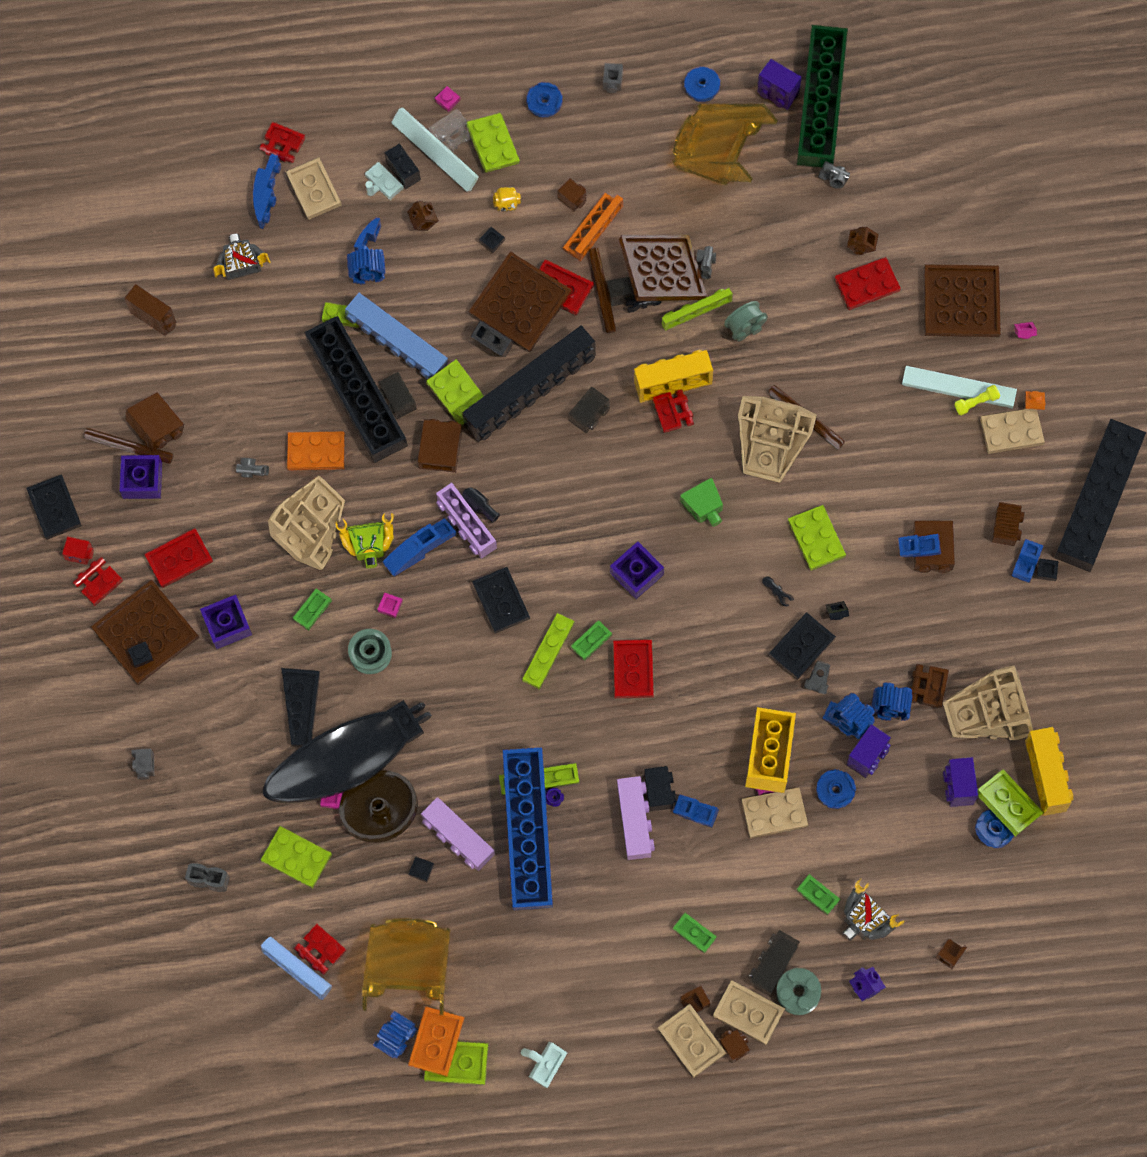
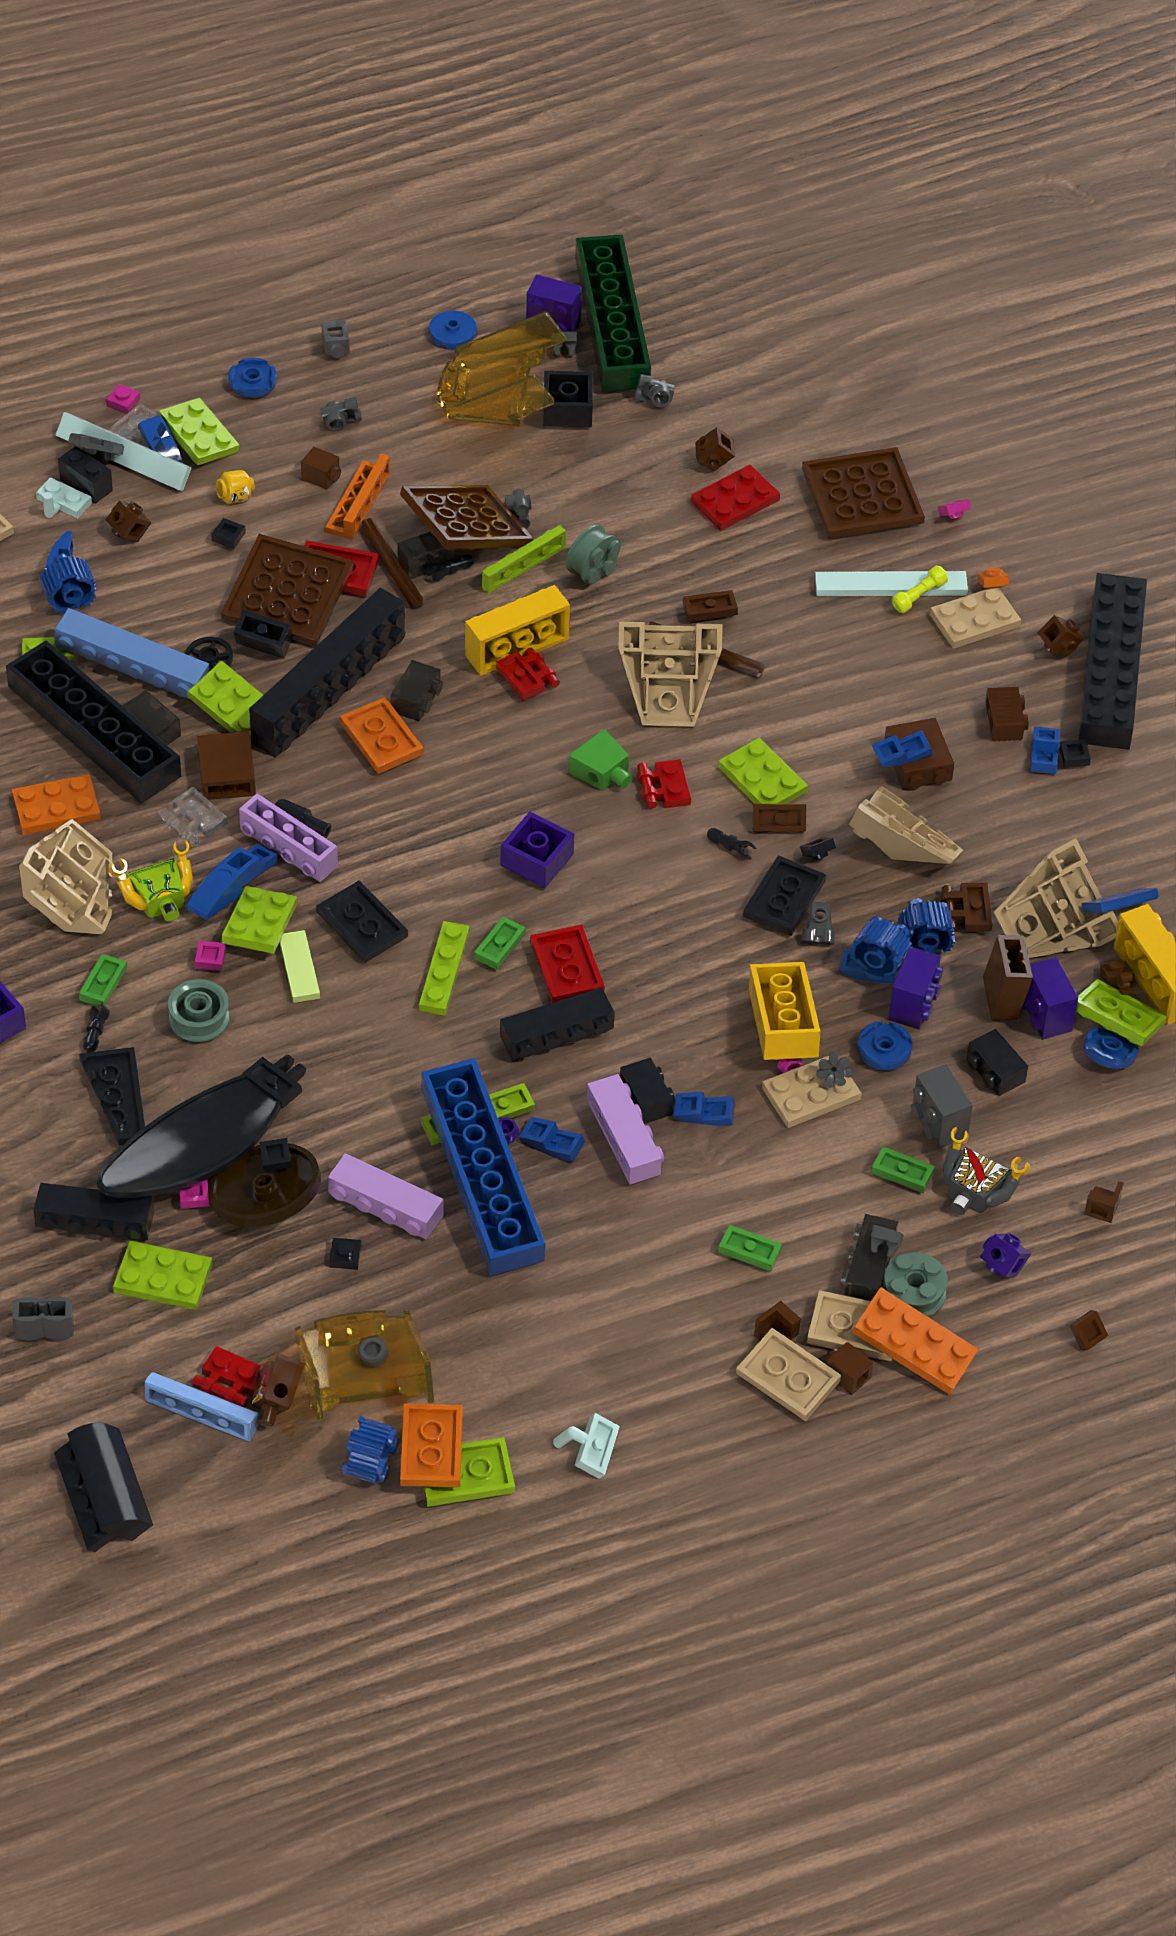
camera: 20 degrees left, 20 degrees down
(216, 1015) = (102, 1485): none -> black brick
(251, 798) = (92, 1212): none -> black brick
(302, 638) = (95, 1027): none -> black piece
(345, 971) = (276, 1387): none -> reddish brown torso
(391, 785) = (275, 1154): none -> black plate
(411, 142) = (96, 447): none -> dark grey plate
(412, 482) = (198, 811): none -> clear plate
(418, 954) = (373, 1352): none -> dark grey tile
(430, 583) = (259, 919): none -> lime plate
(449, 626) = (299, 966): none -> yellowish green tile
(452, 344) = (209, 653): none -> black wheel
(463, 146) = (159, 437): none -> slope
(555, 443) = (381, 735): none -> orange plate
(584, 811) = (547, 1138): none -> blue slope
(596, 147) = (337, 413): none -> dark grey plate
(611, 720) = (557, 1024): none -> black brick
(750, 529) = (671, 780): none -> red plate
(768, 171) = (572, 399): none -> black brick
(783, 113) = (570, 344): none -> dark grey tile
(784, 1037) = (915, 1340): none -> orange plate
(787, 956) = (882, 1235): none -> dark grey tile
(791, 807) = (834, 1070): none -> dark grey plant
(817, 578) = (779, 817): none -> reddish brown plate
(820, 379) = (710, 605): none -> reddish brown plate
(858, 855) = (941, 1106): none -> dark grey brick
(901, 612) = (900, 832): none -> tan wedge
(907, 1056) = (1088, 1330): none -> reddish brown plate
(909, 822) = (997, 1062): none -> black brick
(935, 761) = (1007, 977): none -> reddish brown brick
(1020, 769) = (1118, 974): none -> reddish brown plate
(1038, 709) = (1120, 900): none -> blue tile
(1067, 466) = (1060, 636): none -> reddish brown brick

